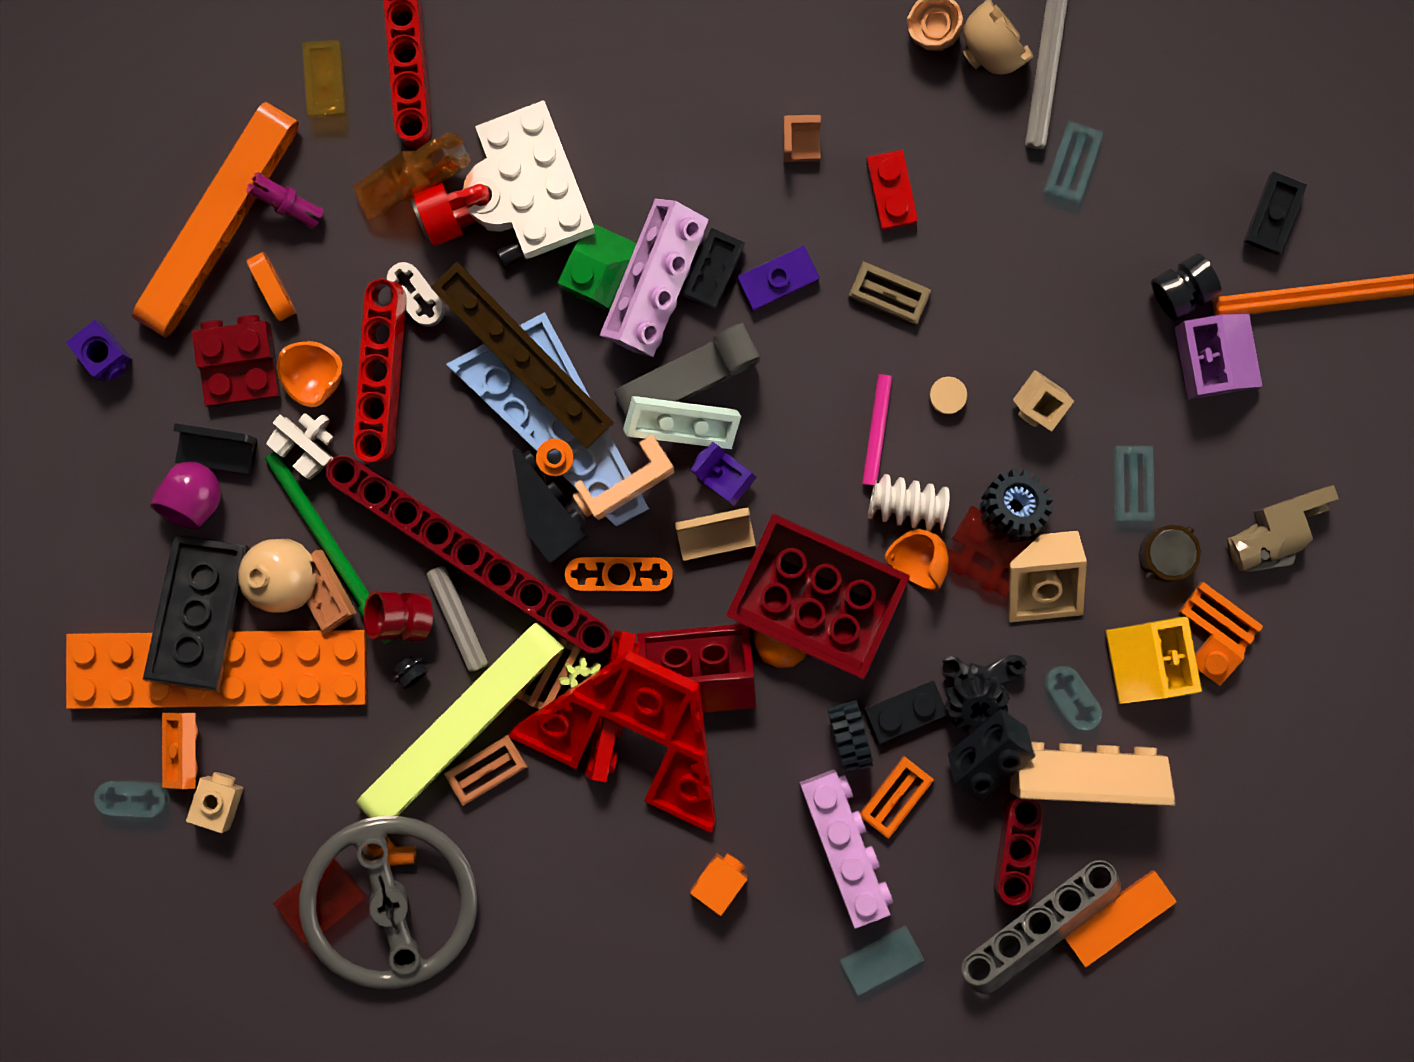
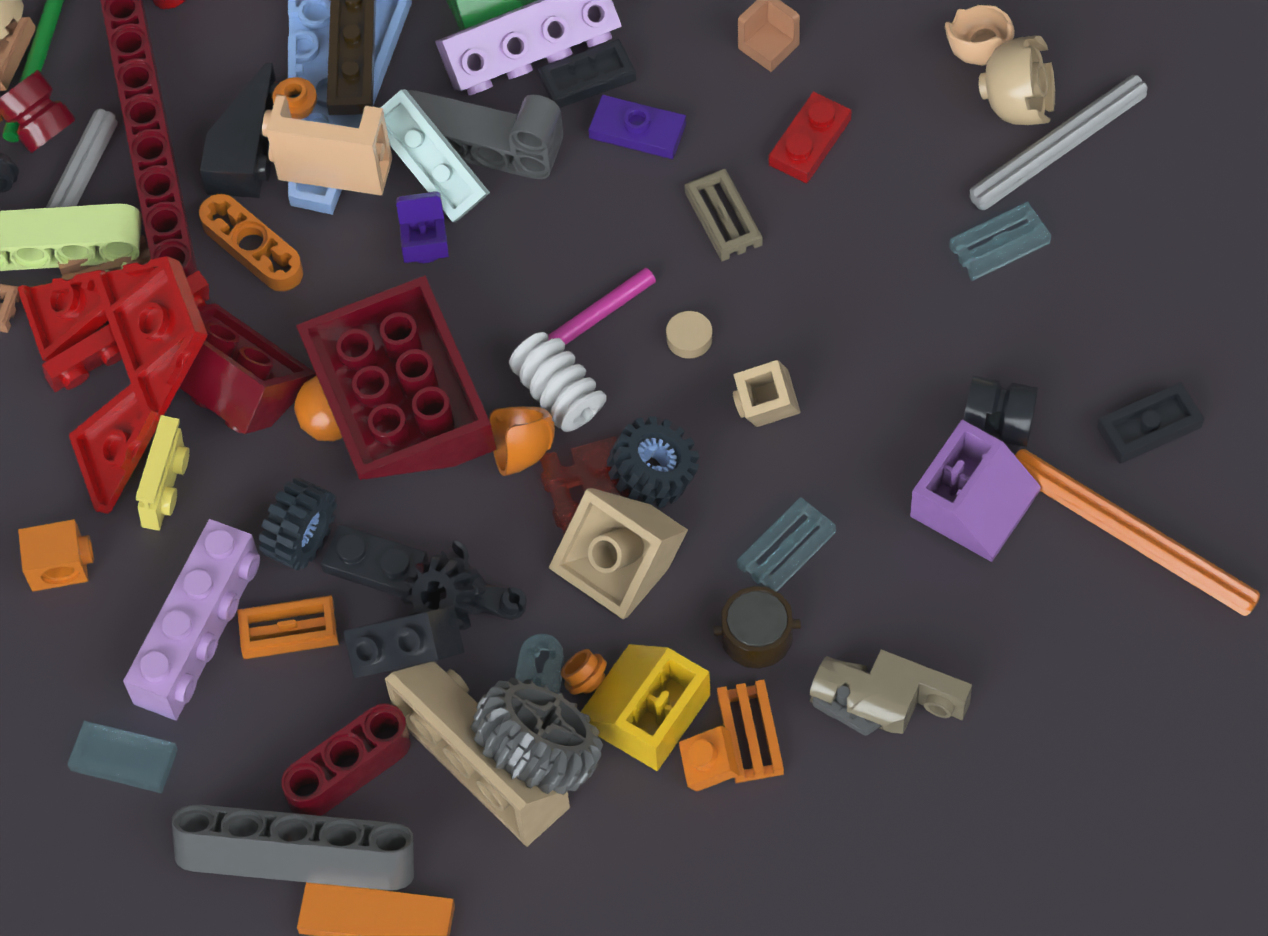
camera: 45 degrees right, 25 degrees down
(715, 534) = (362, 266): tan panel -> none
(741, 789) = (163, 464): none -> light yellow plate
(1091, 673) = (584, 672): none -> orange plate
(1126, 753) = (537, 736): none -> dark grey gear

